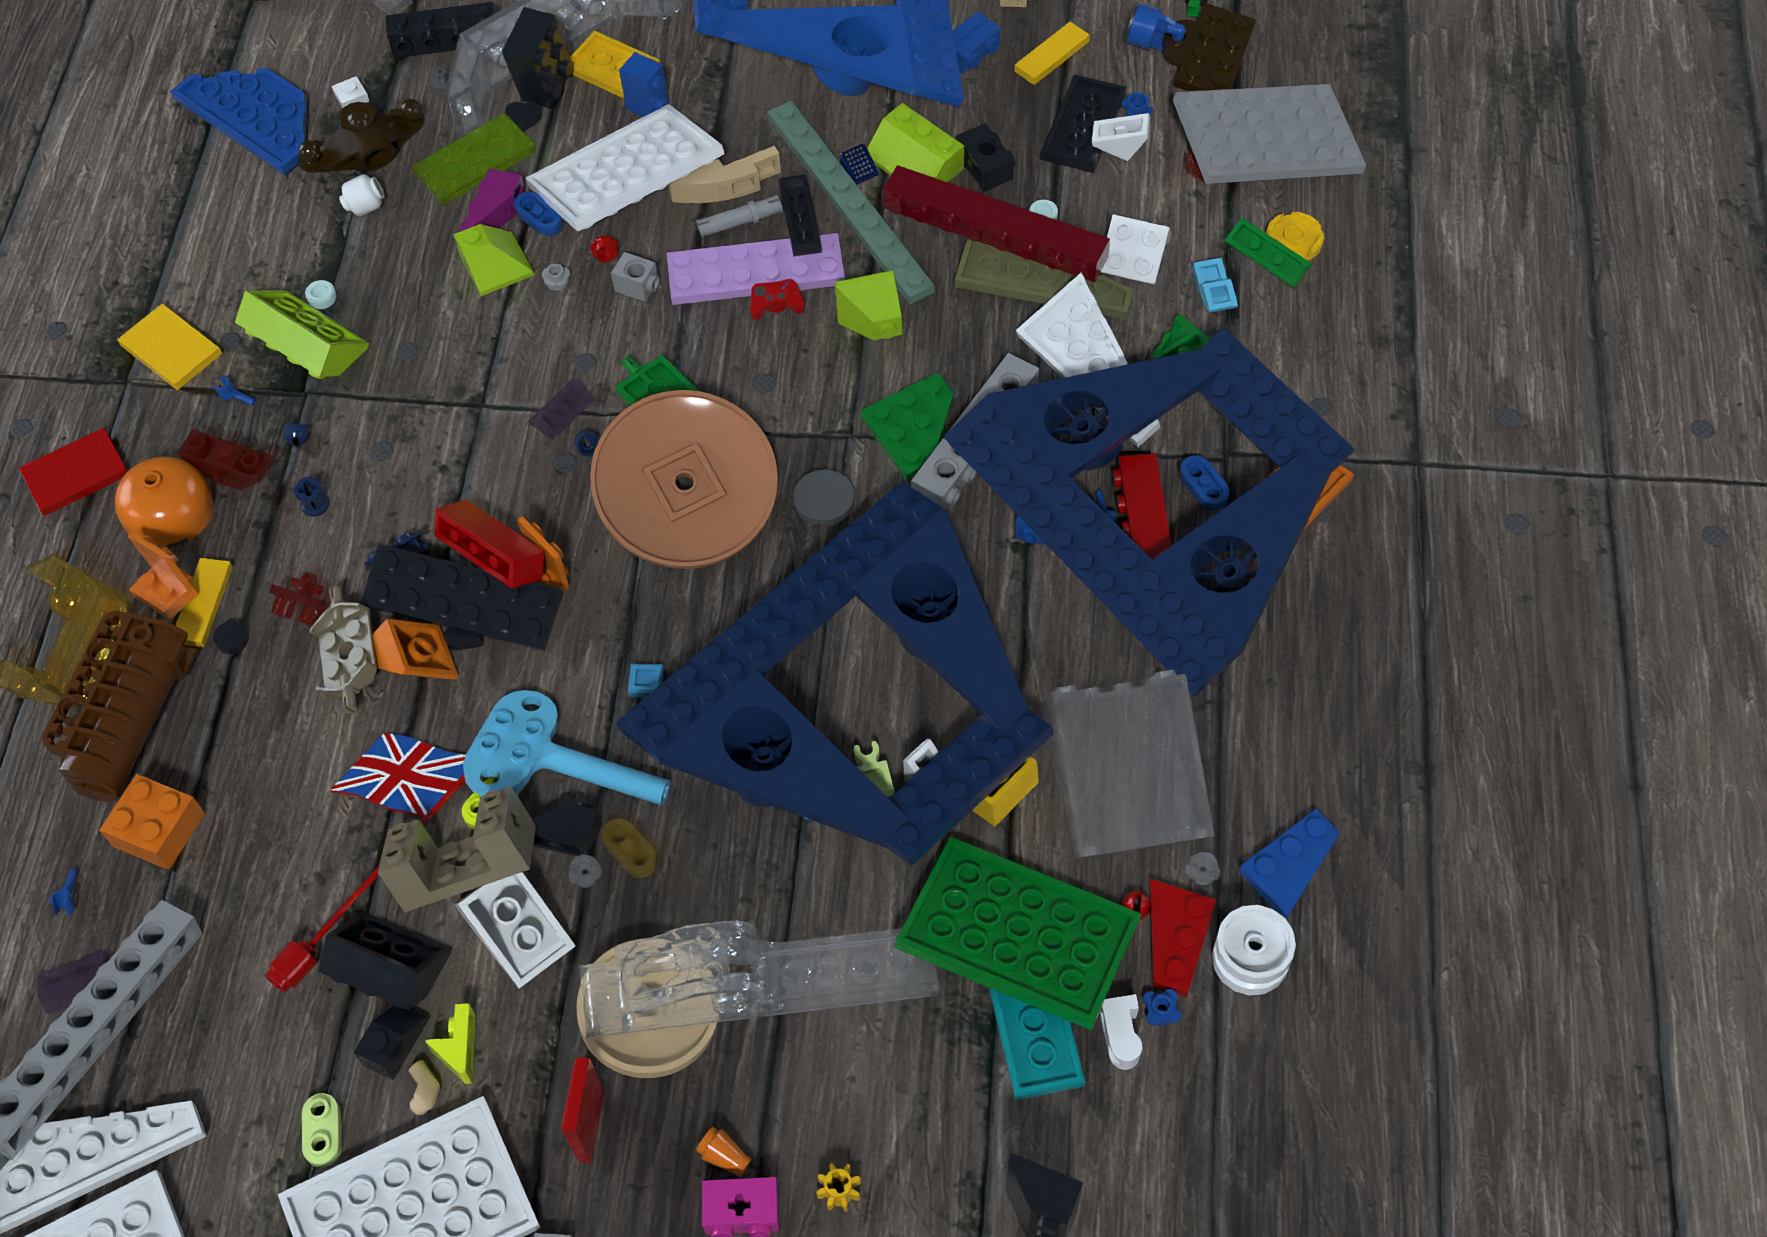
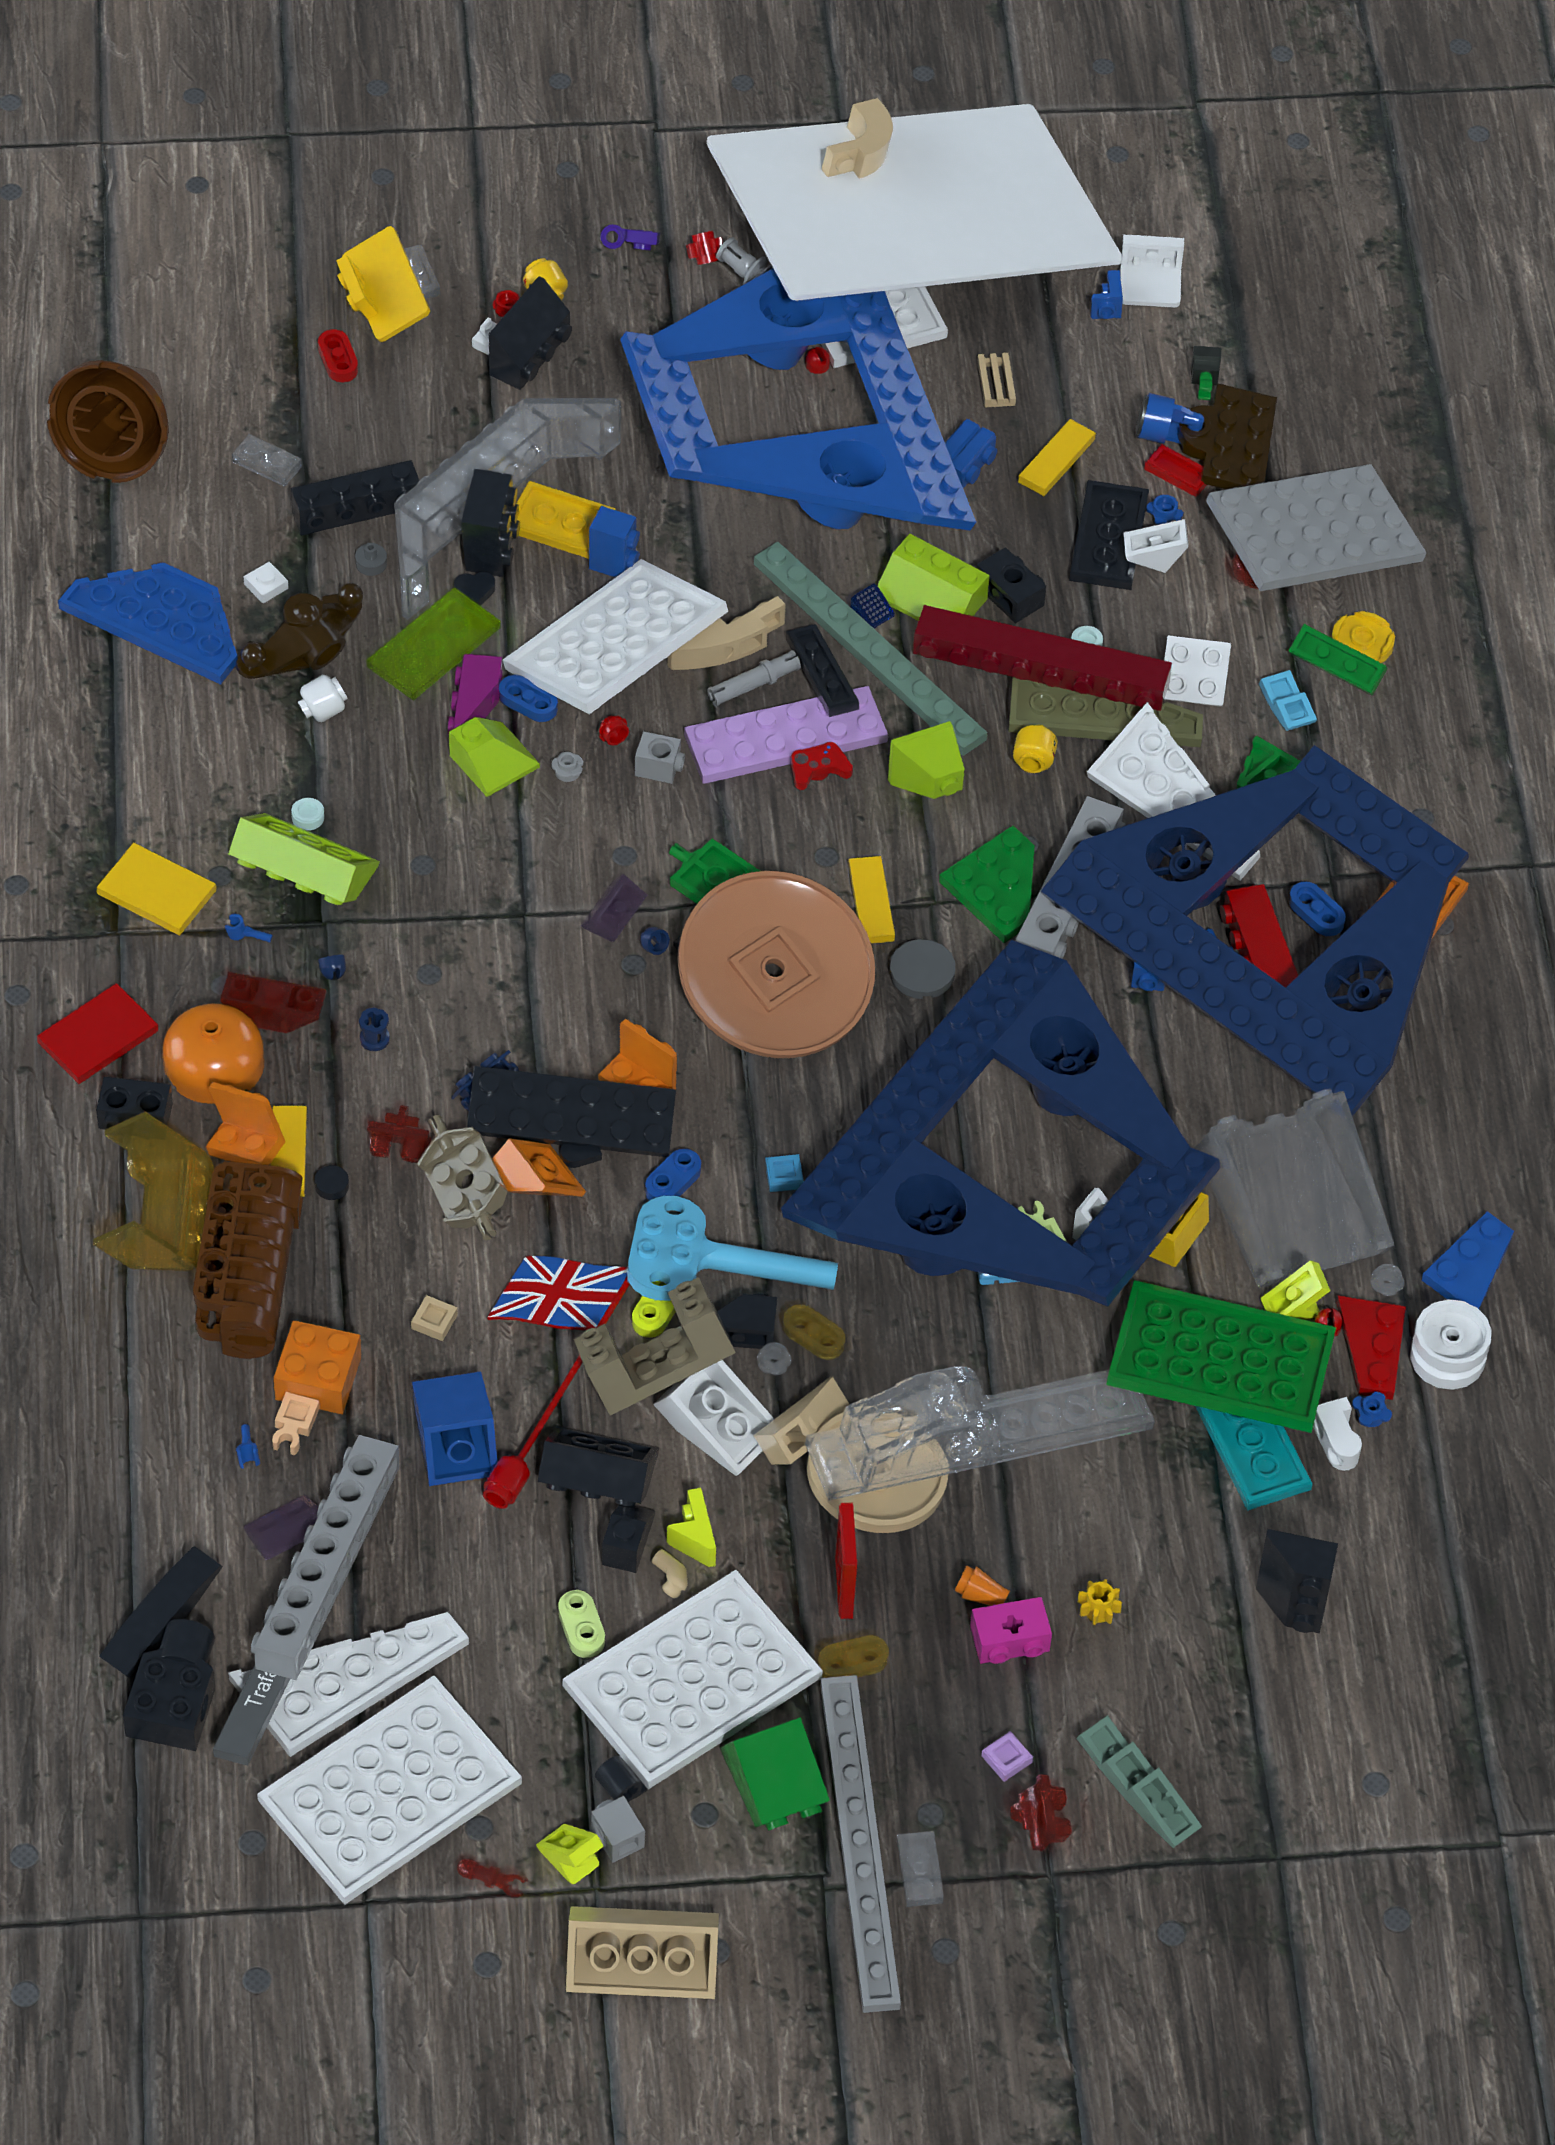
camera: 15 degrees left, 5 degrees down
(78, 543) = (133, 1099): none -> black brick
(117, 869) = (294, 1418): none -> light nougat plate
(257, 902) = (455, 1428): none -> blue slope
(278, 785) = (434, 1318): none -> tan plate
(489, 543) = (589, 1052): red brick -> none
(544, 672) = (675, 1175): none -> blue plate
(576, 1213) = (852, 1655): none -> clear yellow plate
(591, 942) = (786, 1435): none -> tan slope
(793, 427) = (872, 898): none -> yellow tile
(972, 304) = (1035, 748): none -> yellow head
(1109, 874) = (1298, 1293): none -> neon yellow slope
(1155, 73) = (1176, 470): none -> red tile

